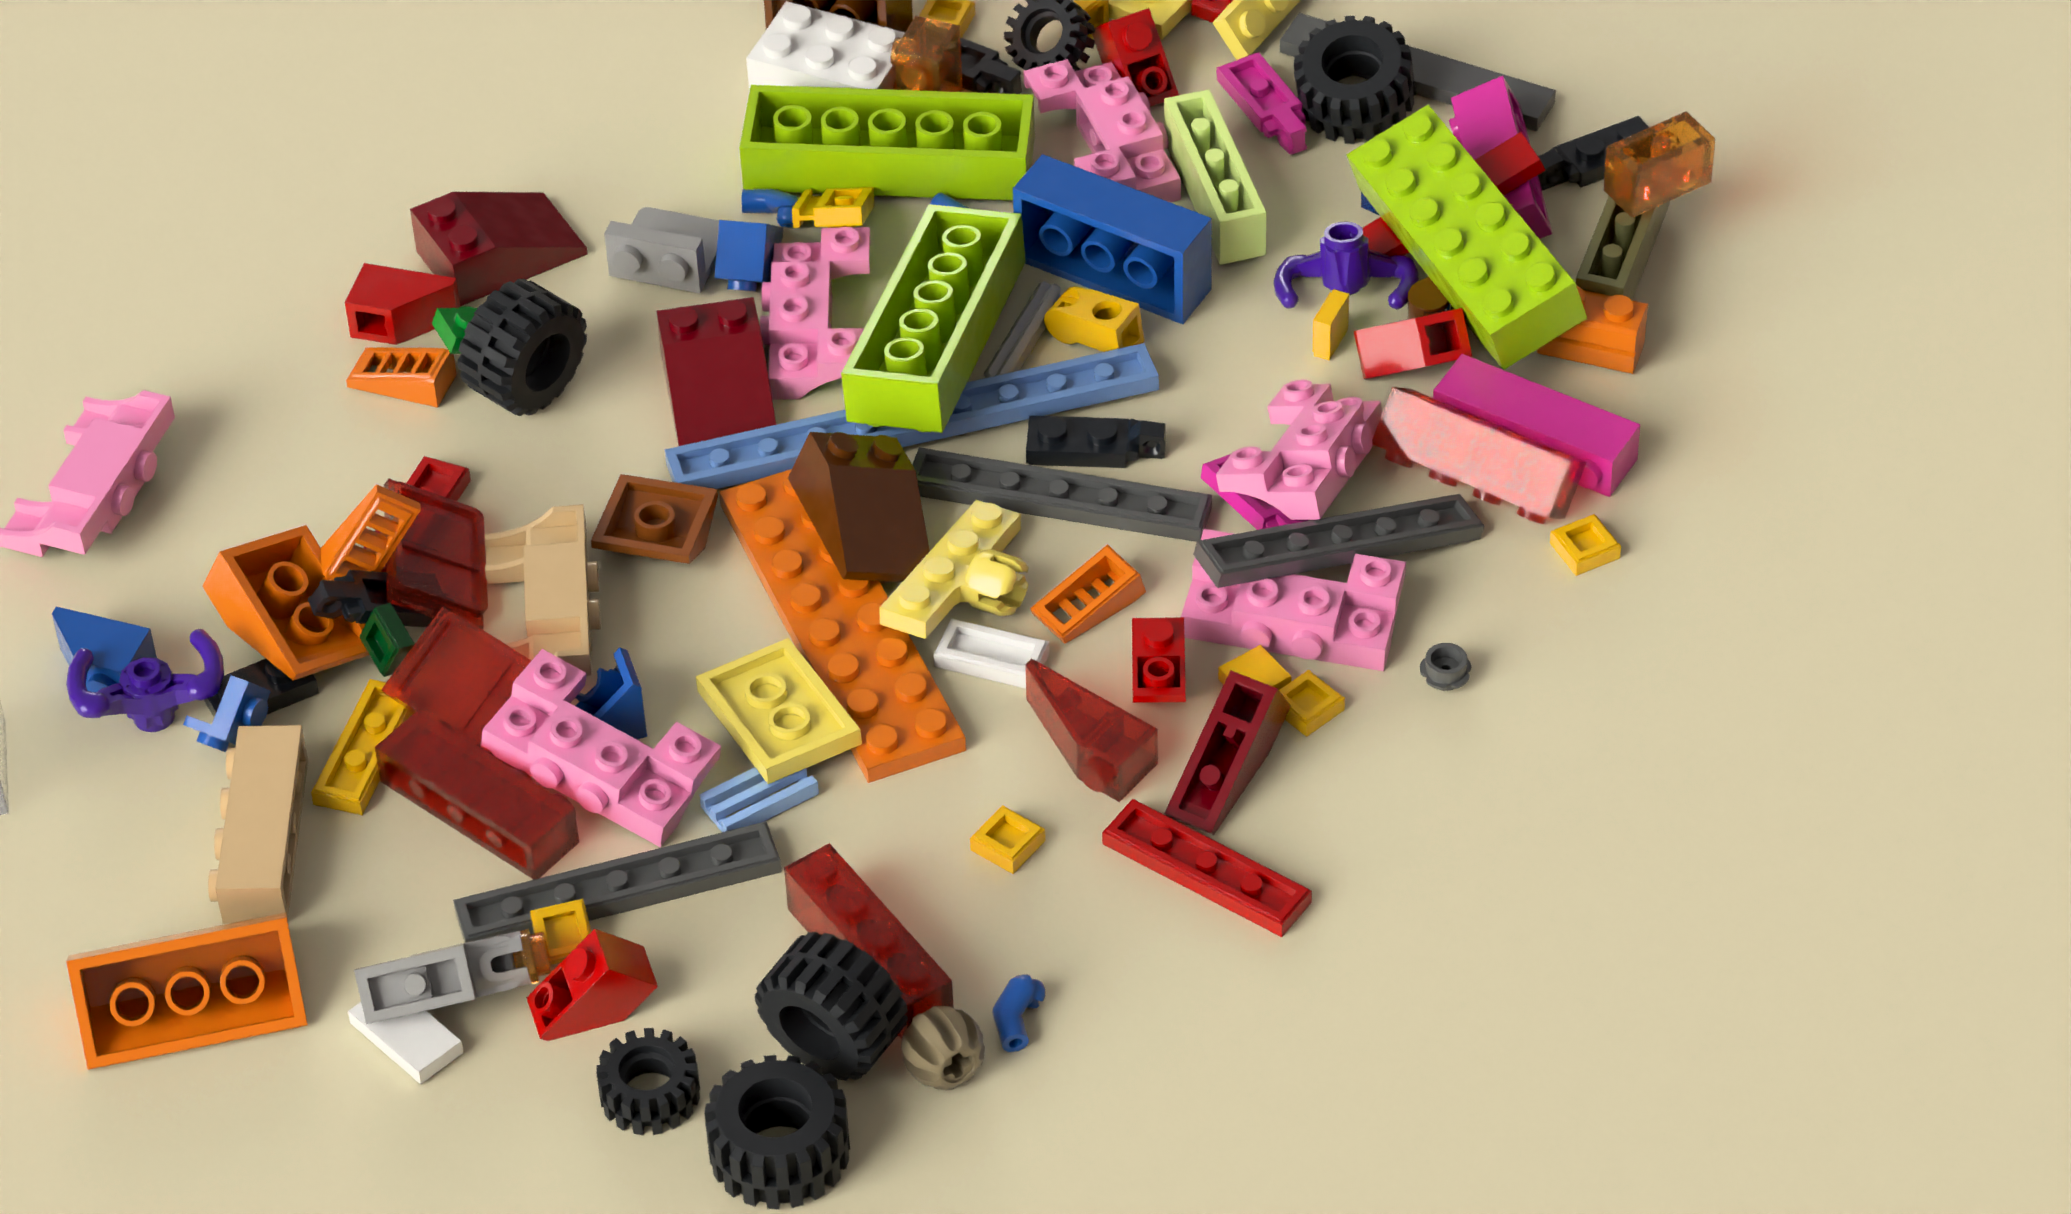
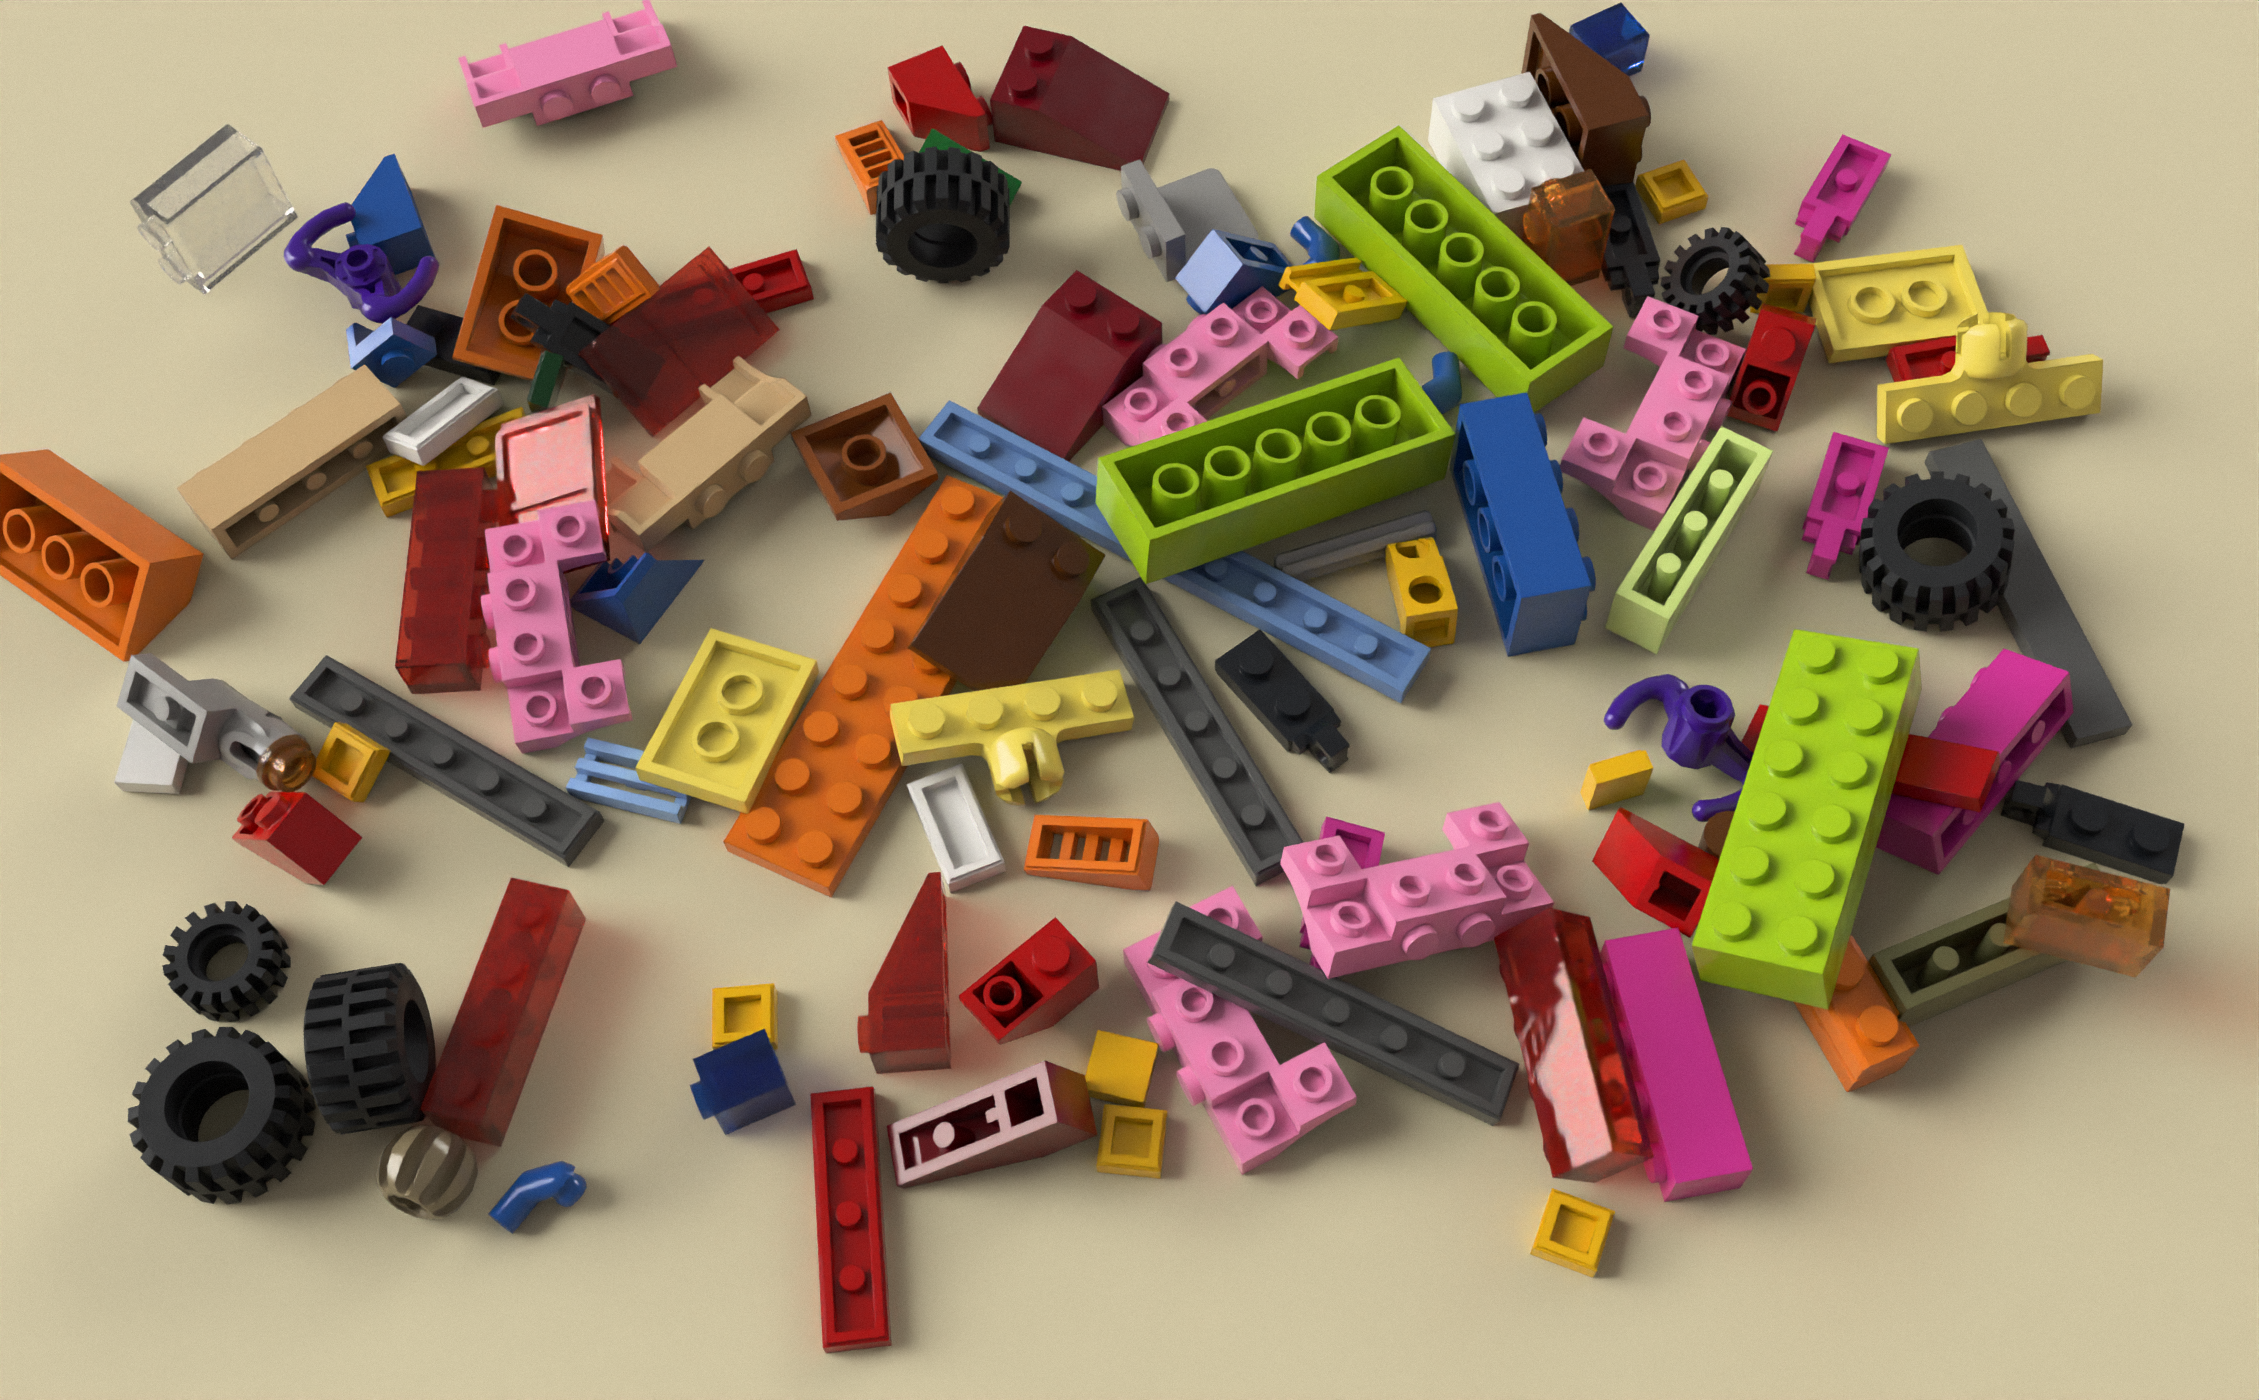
camera: 50 degrees right, 15 degrees up
(331, 724) = (443, 420): none -> white tile
(1059, 855) = (741, 1083): none -> clear blue brick
(1445, 667) = (1283, 1217): dark grey plate -> none

